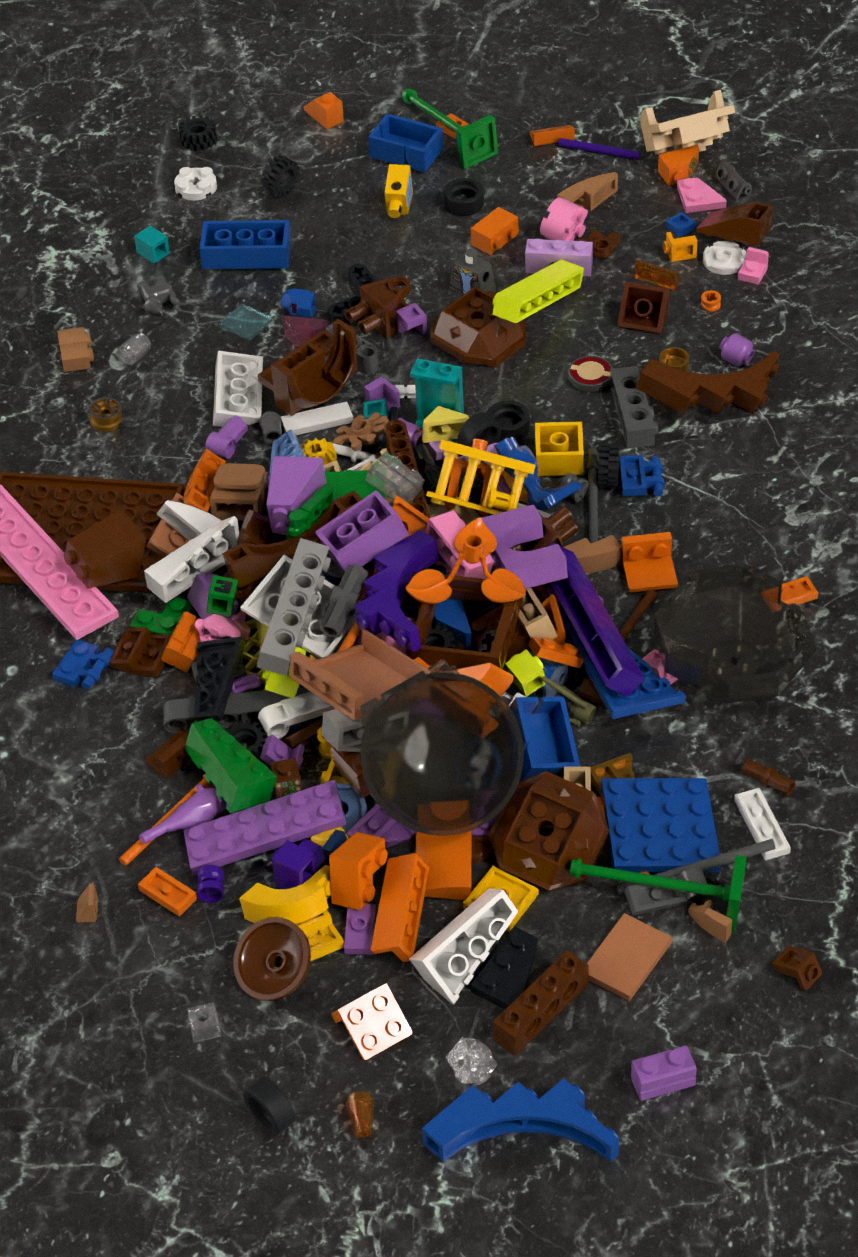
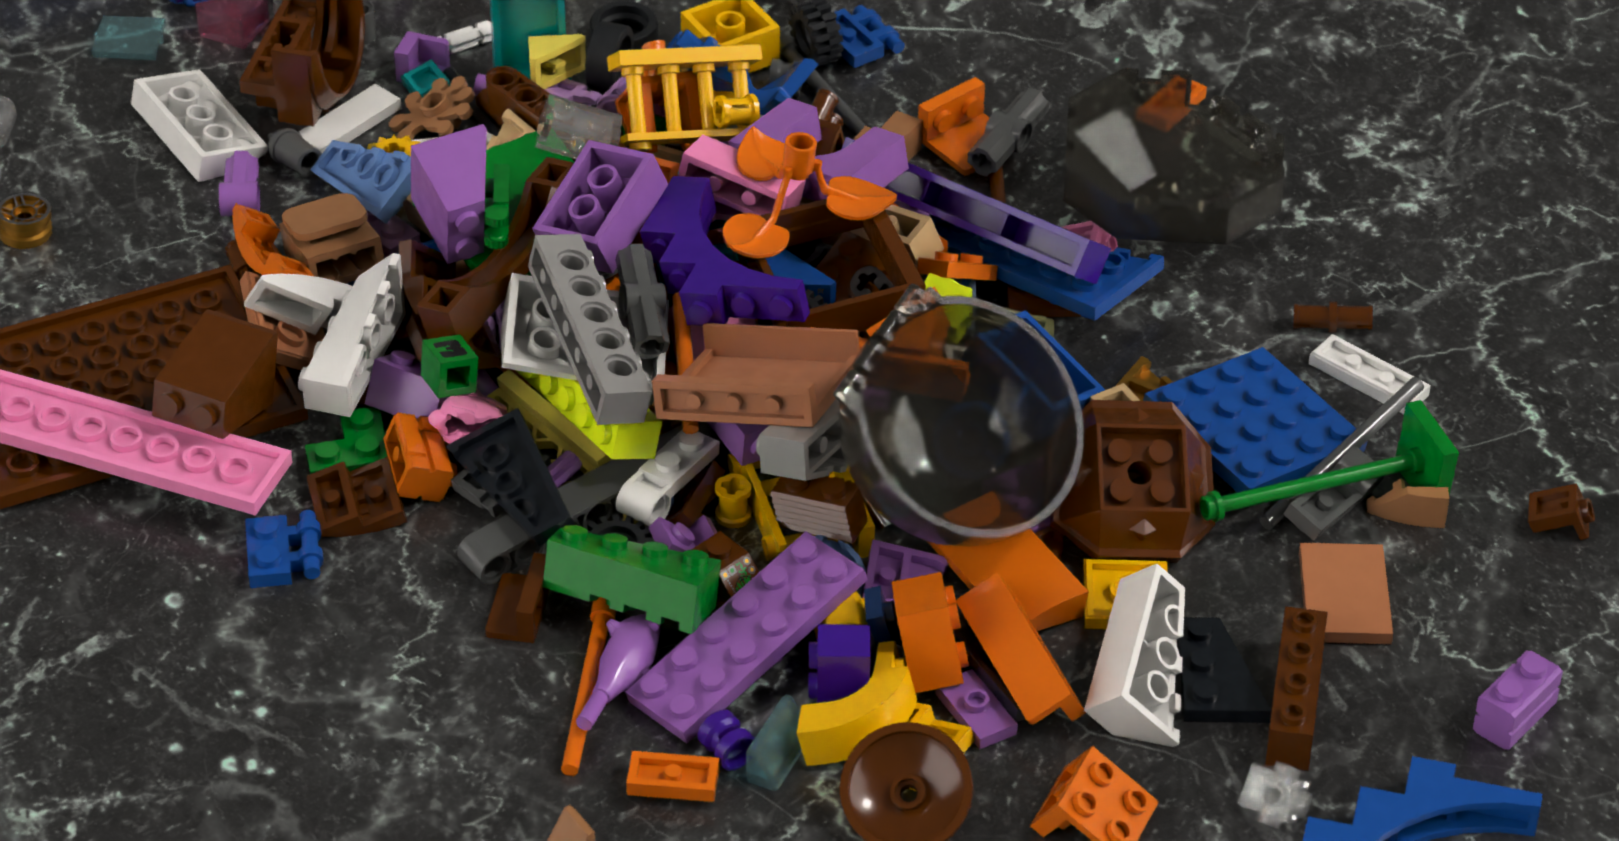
camera: 35 degrees left, 5 degrees down
(225, 903) = (775, 746): none -> clear light blue slope
(667, 574) = (1008, 131): none -> dark grey piece

